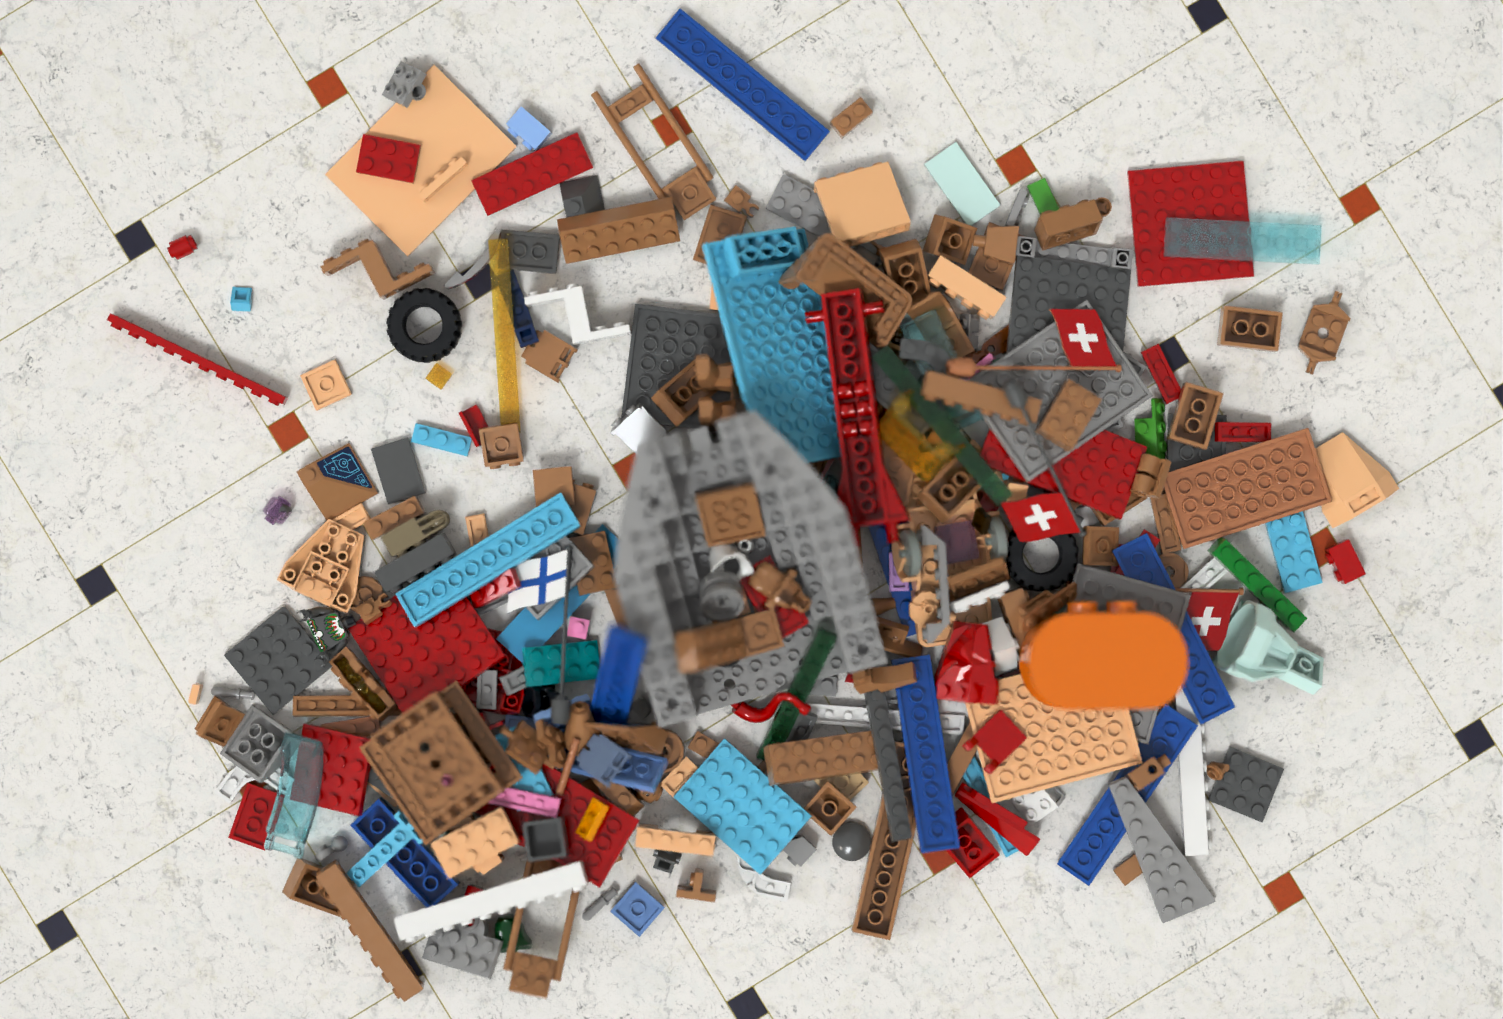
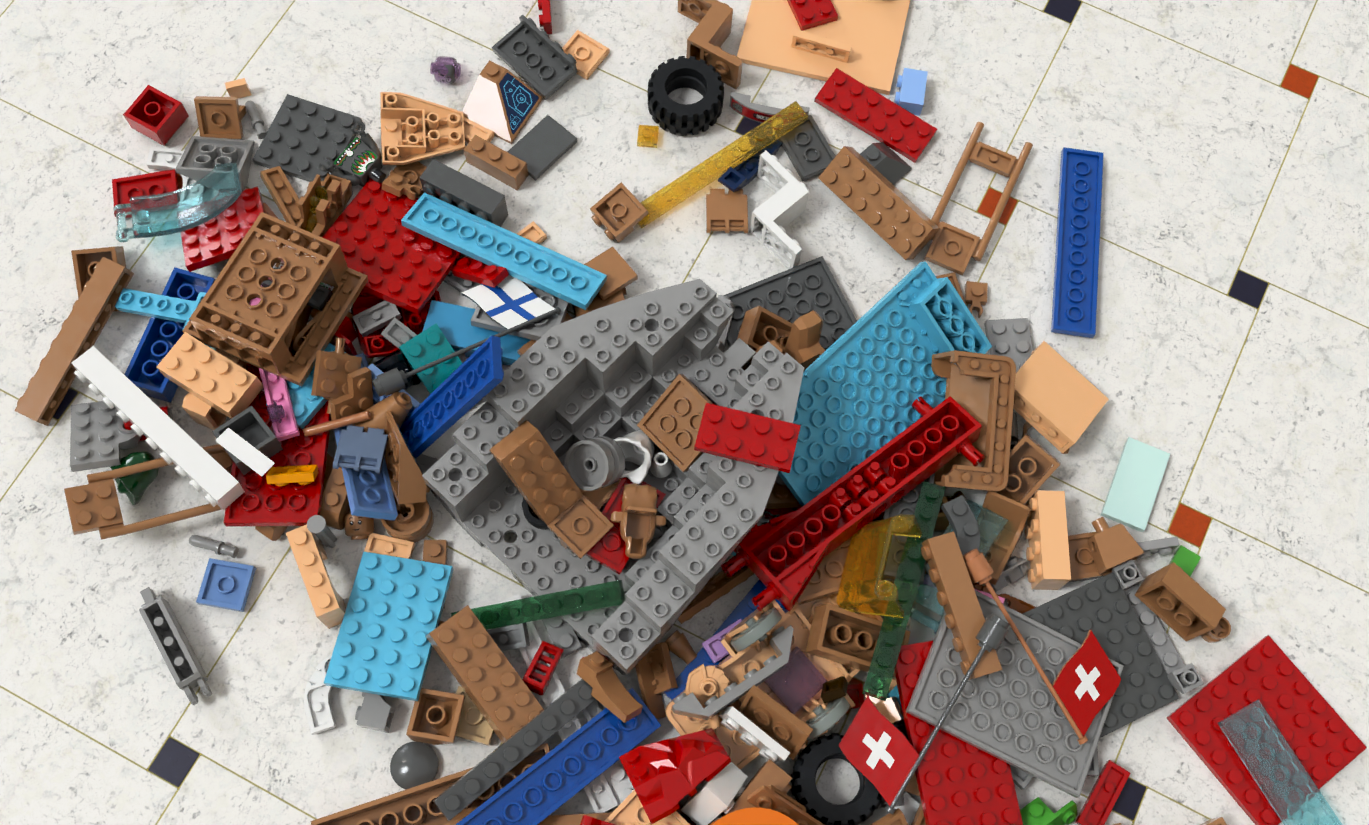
camera: 55 degrees right, 20 degrees down
(186, 773) = (156, 115): none -> red brick
(310, 429) = (536, 57): none -> dark grey bracket
(338, 844) = (139, 266): light grey plate -> none
(414, 532) = (497, 178): dark tan brick -> none
(441, 439) = (592, 167): medium azure plate -> none
(473, 421) = (629, 178): red panel -> none
(537, 807) = (275, 412): none -> clear purple plate
(559, 845) = (245, 452): none -> white sticker
(645, 821) = (317, 525): none -> light grey axle
(663, 967) = (173, 645): none -> light grey hinge
(666, 860) = (291, 582): dark grey brick -> none
(696, 892) = (276, 627): medium nougat bracket -> none
(760, 715) = (497, 591): red animal -> none
(785, 487) = (747, 437): none -> red plate
(849, 726) = (540, 687): none -> red slope
(851, 117) = (1121, 346): medium nougat brick -> none
(949, 239) = (1083, 499): medium nougat slope -> none
(1068, 415) = (1003, 711): medium nougat brick -> none

